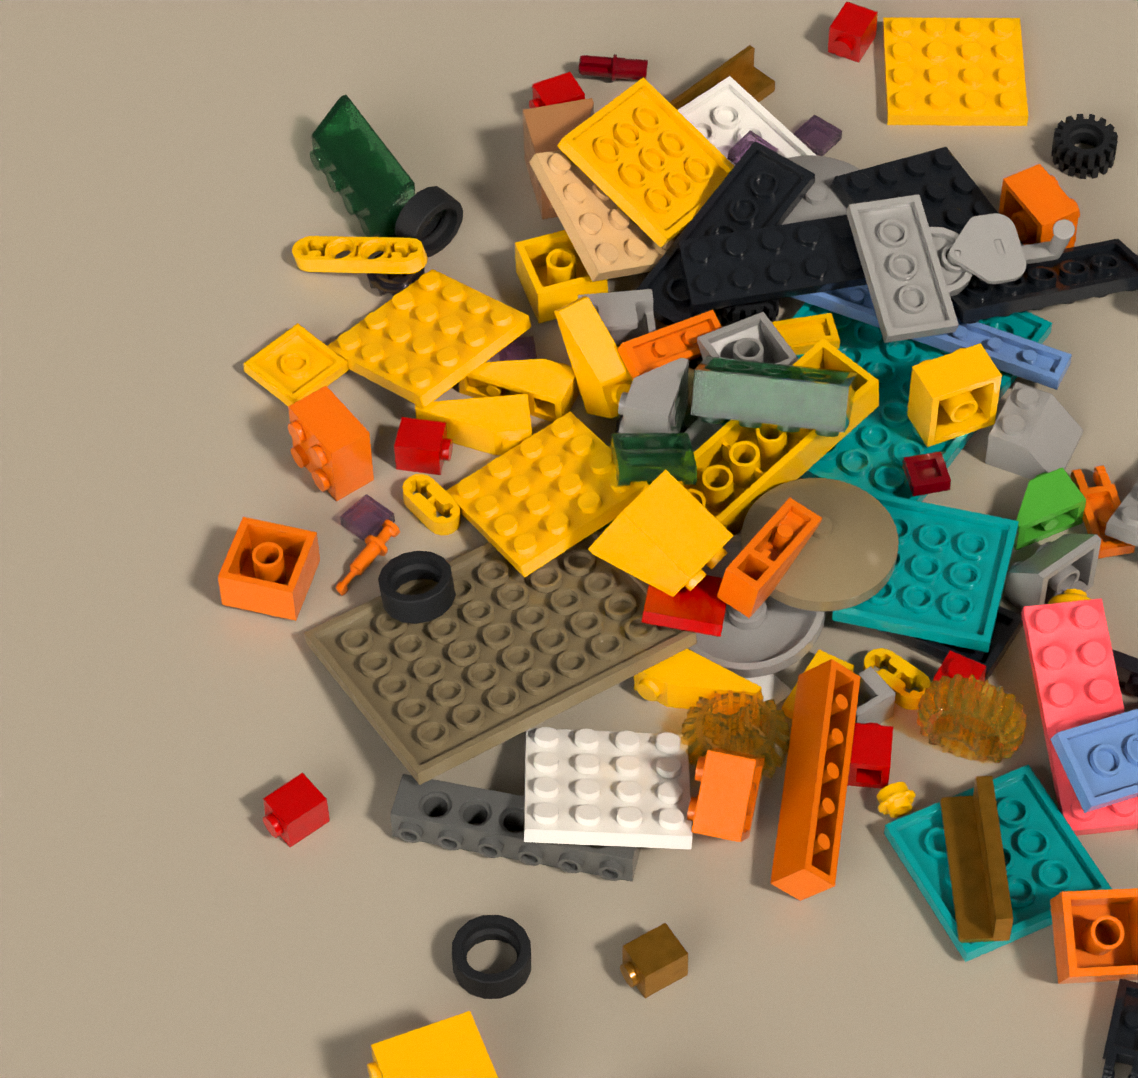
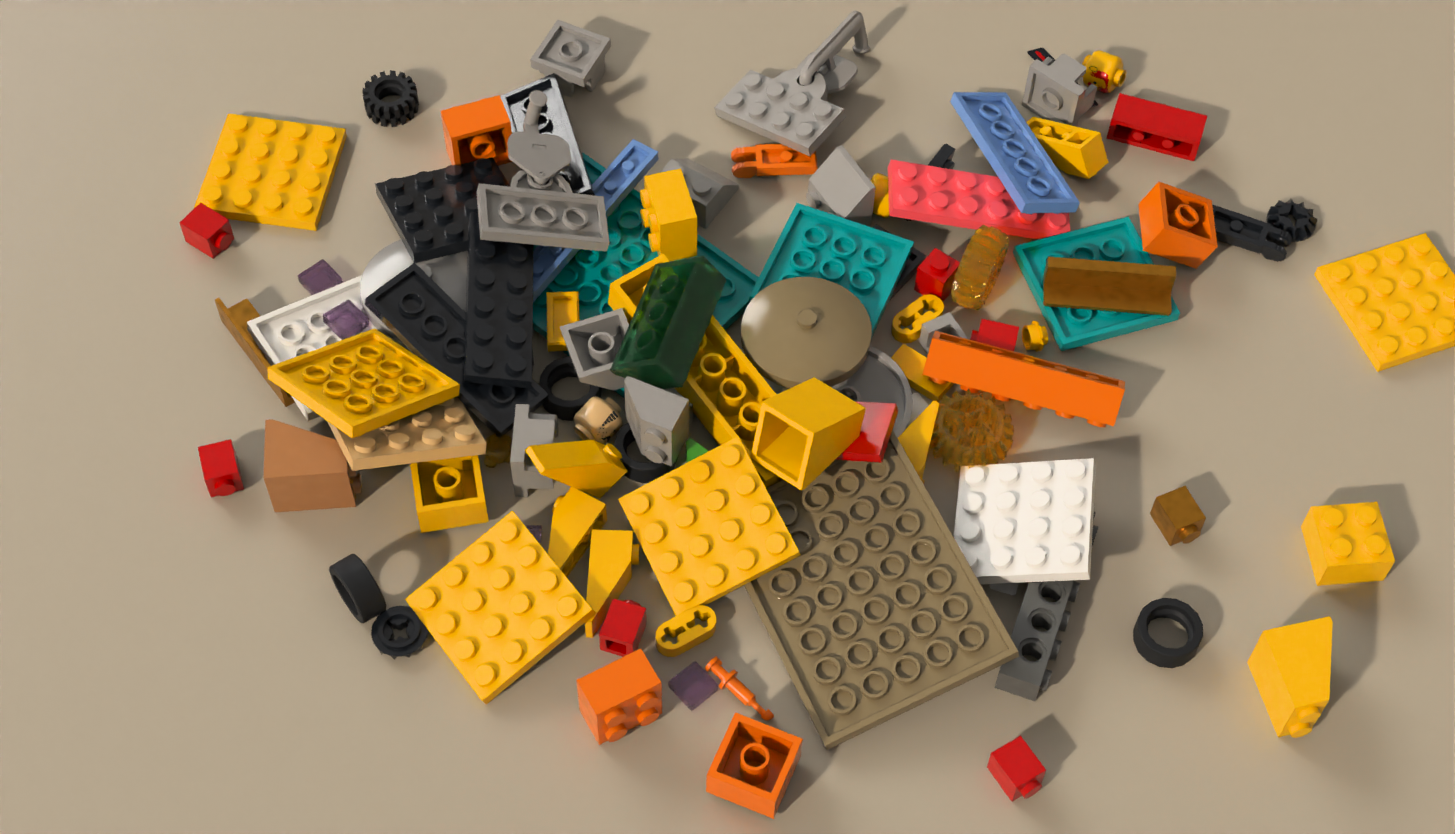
camera: 85 degrees left, 5 degrees up
(295, 365) = (500, 729): yellow plate -> none
(361, 169) = (276, 638): clear green slope -> none
(399, 254) = (374, 654): yellow beam -> none
(417, 607) = (797, 614): black tyre -> none
(613, 67) = (188, 419): dark red axle -> none
(646, 455) = (707, 424): clear green plate -> none
(667, 344) = (573, 403): orange plate -> none
(726, 794) = (1047, 429): orange brick -> none
(767, 557) = (840, 357): orange slope -> none
(926, 473) = (734, 255): dark red plate -> none
(1048, 507) = (767, 191): bright green slope -> none

